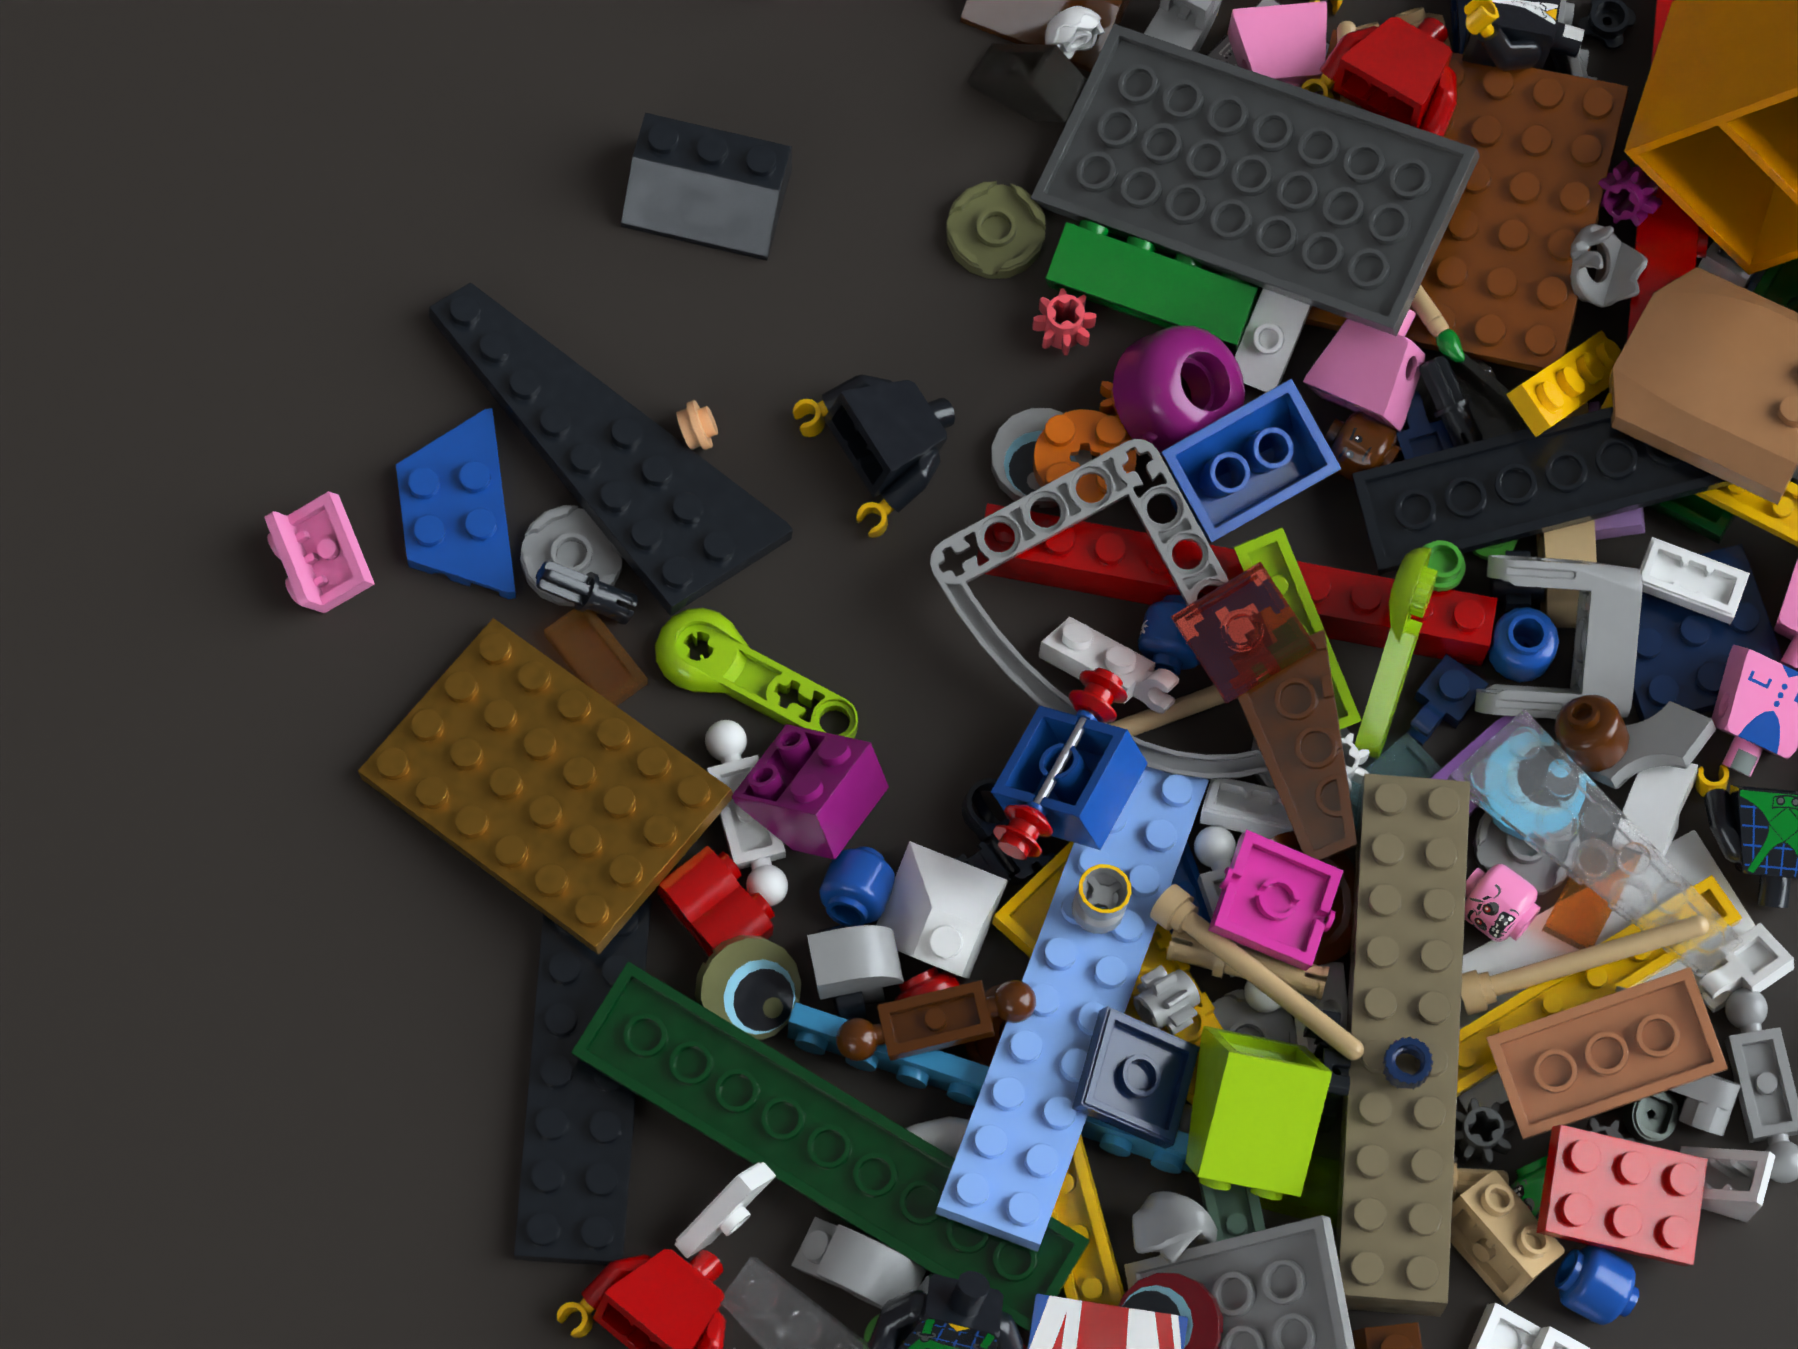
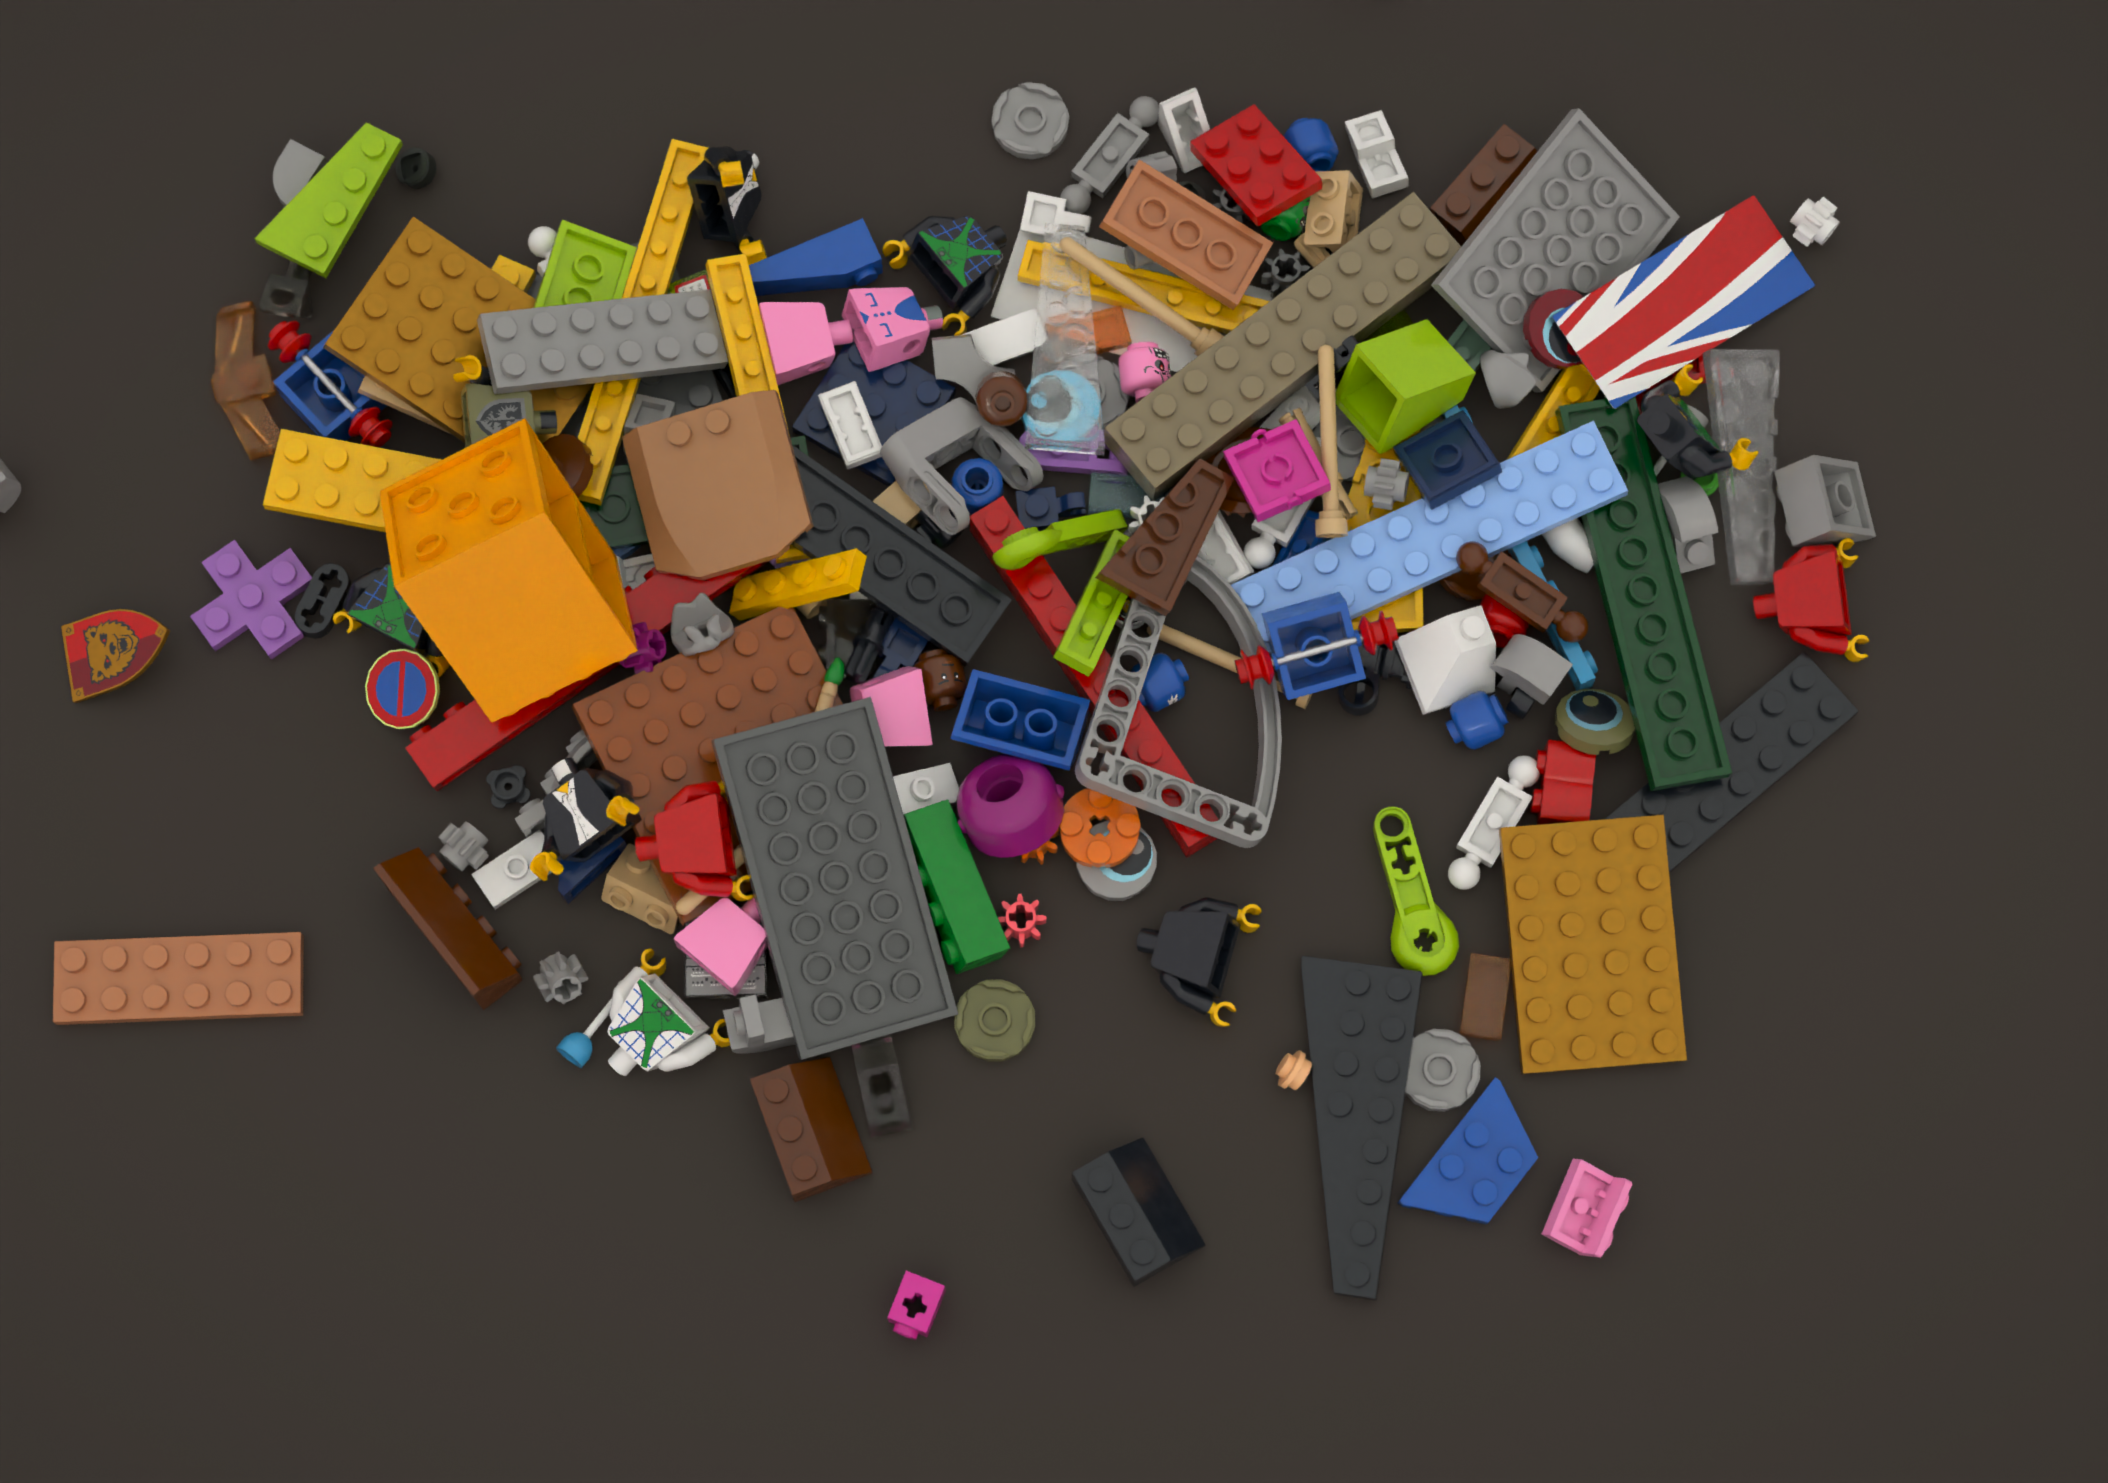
camera: 130 degrees left, 5 degrees up
(586, 591) = (1460, 1029): black axle -> none
(726, 1211) = (1730, 613): white plate -> none
(813, 789) = (1451, 792): magenta slope -> none
(1074, 30) = (830, 1079): white plate -> none
(1080, 648) = (1214, 701): white plate -> none
(1104, 887) = (1369, 553): light grey wheel -> none
(1243, 632) = (1141, 618): clear red tile -> none
(1418, 1050) = (1312, 303): dark blue axle -> none
(1448, 562) = (979, 563): bright green plate -> none

